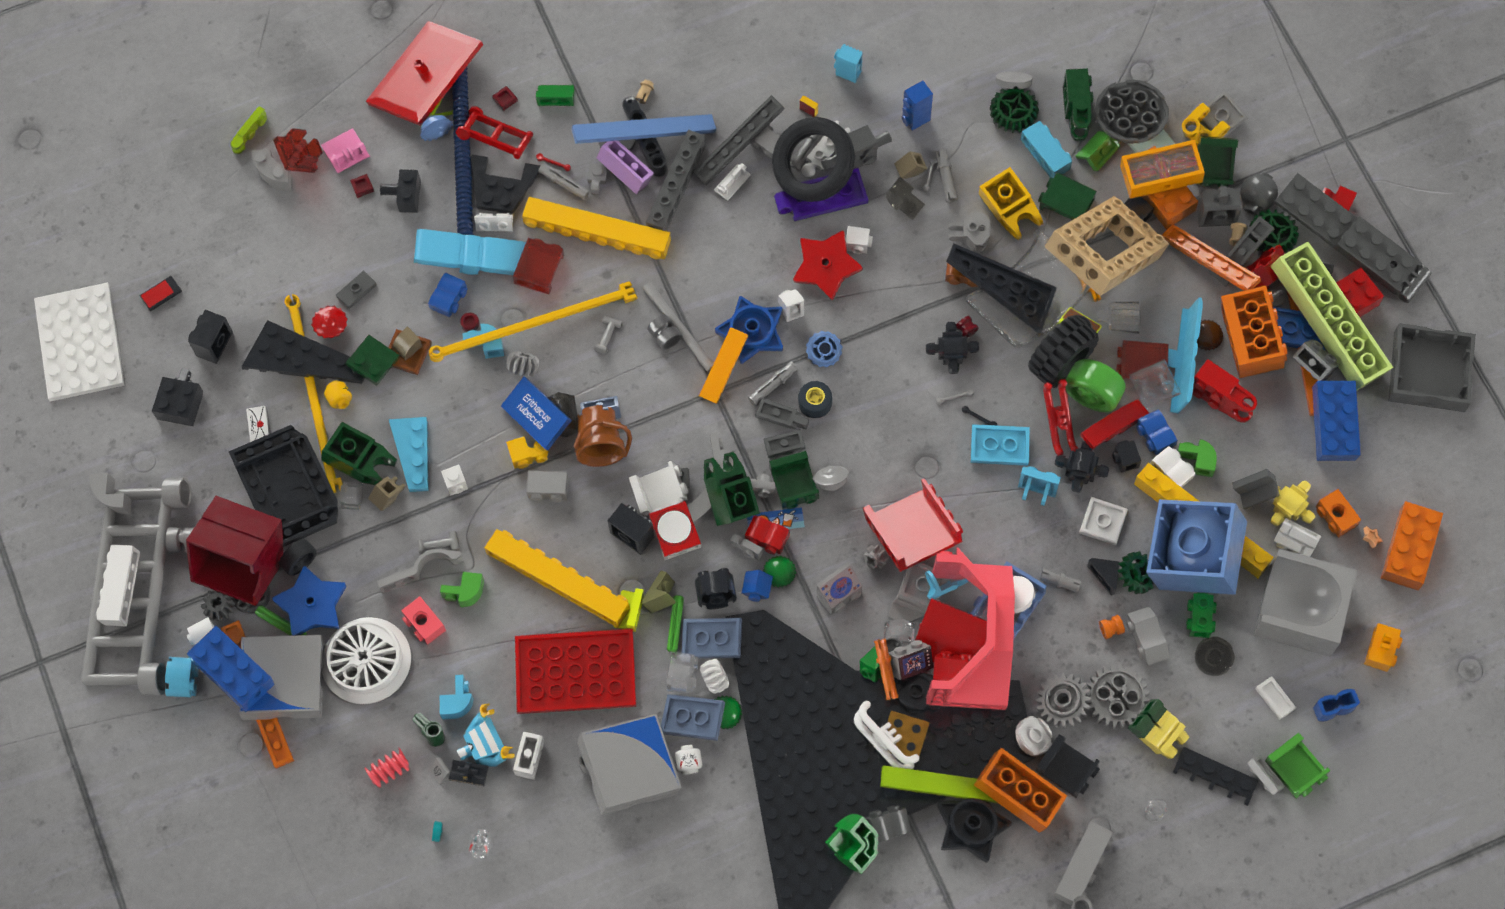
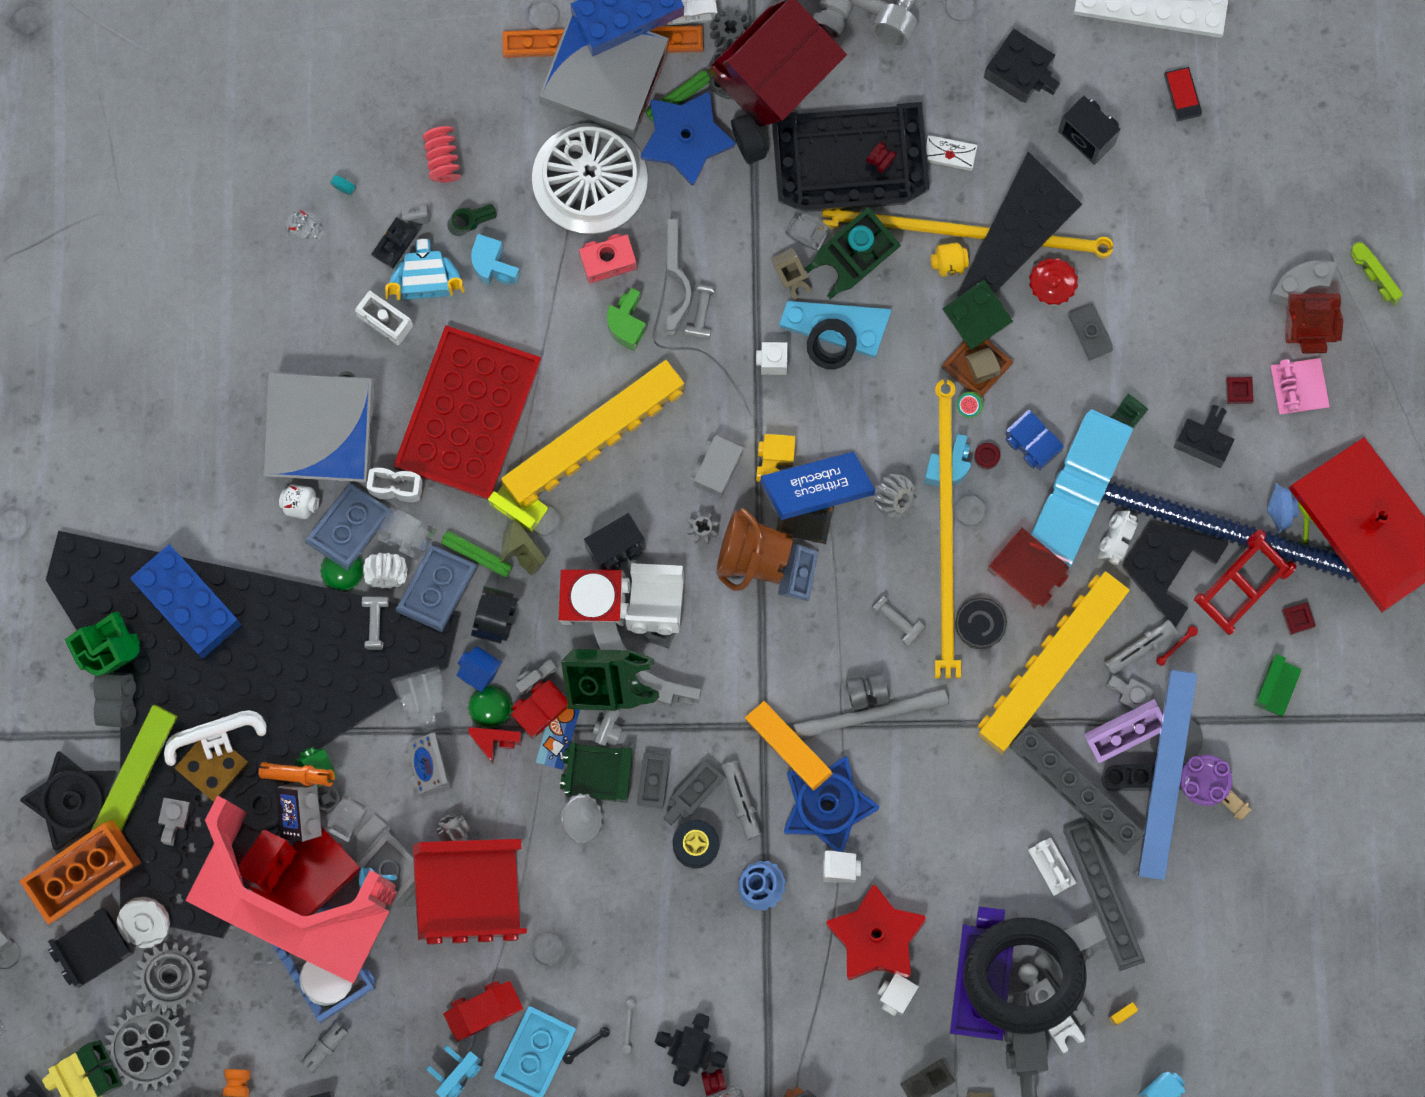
camera: 110 degrees right, 10 degrees up
(280, 462) = (881, 157): none -> dark red wheel
(347, 447) = (860, 238): none -> teal tile
(404, 244) = (1130, 412): none -> clear green panel
(418, 450) = (822, 360): none -> black tyre
(437, 340) = (970, 404): none -> tile
(588, 283) = (980, 623): none -> black tile
(591, 477) = (700, 521): none -> light grey gear
(637, 104) = (1206, 780): none -> medium lavender dish
(649, 695) = (402, 485): none -> white brick
(742, 672) = (374, 625): none -> light grey piece
(791, 615) = (421, 695): none -> clear torso
(796, 802) = (186, 601): none -> blue brick
(803, 560) = (488, 737): none -> red slope
(951, 746) = (173, 816): none -> light grey plate
(988, 487) = (485, 1009): none -> red brick

